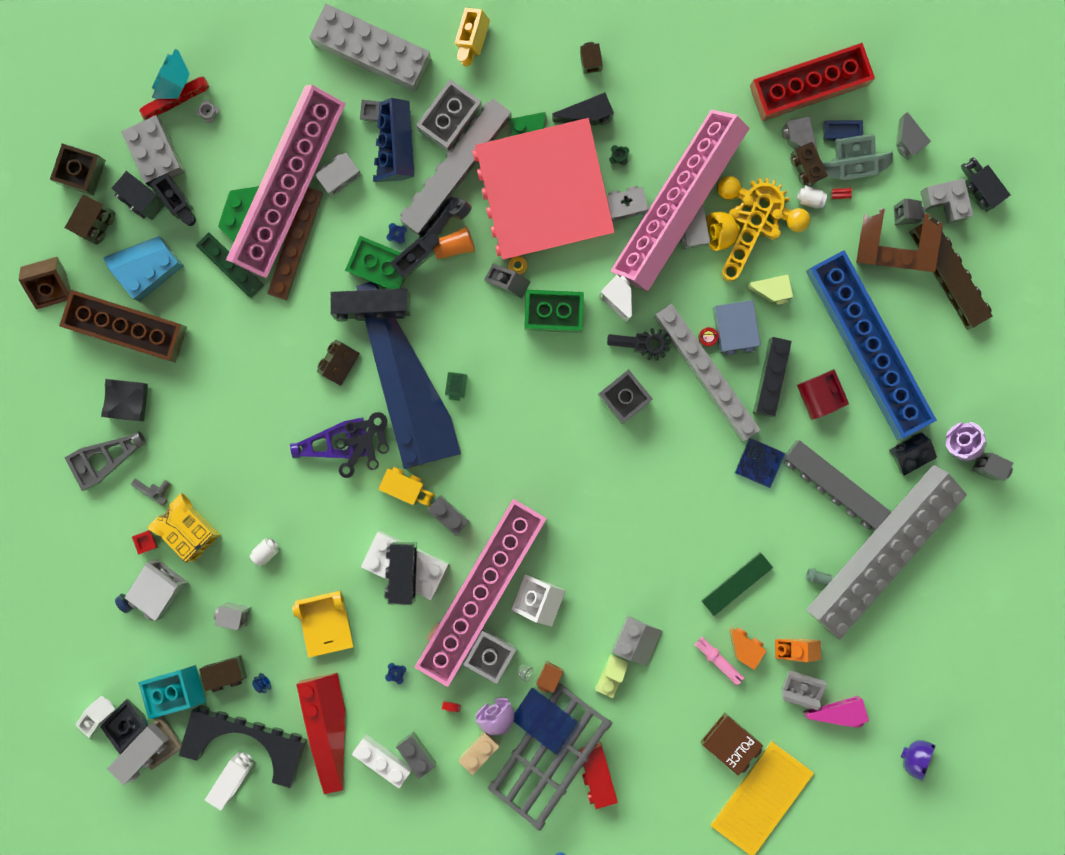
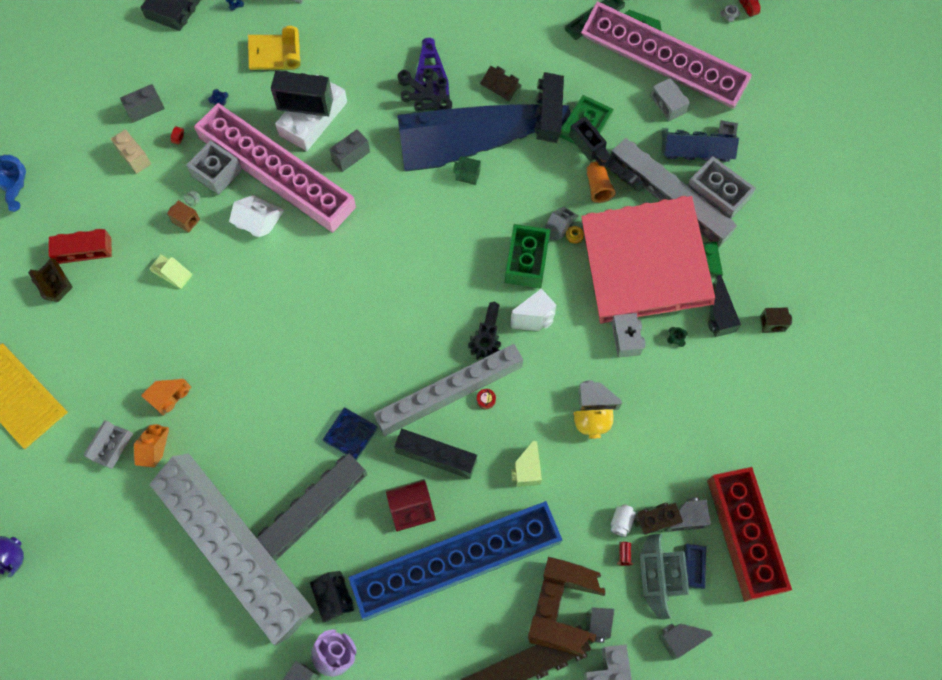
camera: 90 degrees right, 20 degrees down
(264, 551) = (345, 13): white brick -> none
(295, 244) = (610, 64): reddish brown plate -> none
(325, 727) = (189, 39): red wedge -> none
(370, 47) = (785, 135): light grey brick -> none
(382, 761) = (150, 71): white brick -> none
(396, 238) = (613, 143): clear blue plate -> none
(405, 487) = (381, 120): yellow brick -> none
(471, 35) = (798, 215): yellow brick -> none
(496, 718) = (157, 166): lavender cylinder -> none
(544, 720) = (142, 205): clear blue tile -> none
(546, 777) = (112, 220): dark grey door -> none
(625, 396) = (435, 309): dark grey brick -> none
(636, 640) = (198, 294): light grey slope -> none
(641, 795) = (51, 281): none -> dark brown bracket
(680, 199) = (629, 382): bright pink brick -> none
(712, 654) = (160, 368): bright pink pin -> none
(730, 188) = (637, 437): yellow piece -> none
(732, 744) = (74, 370): reddish brown brick -> none
(736, 327) = (492, 425): sand blue brick -> none
(737, 584) = (232, 396): dark green tile -> none
(818, 577) = (221, 476): sand green pin -> none
(845, 712) = (74, 483): dark pink slope -> none

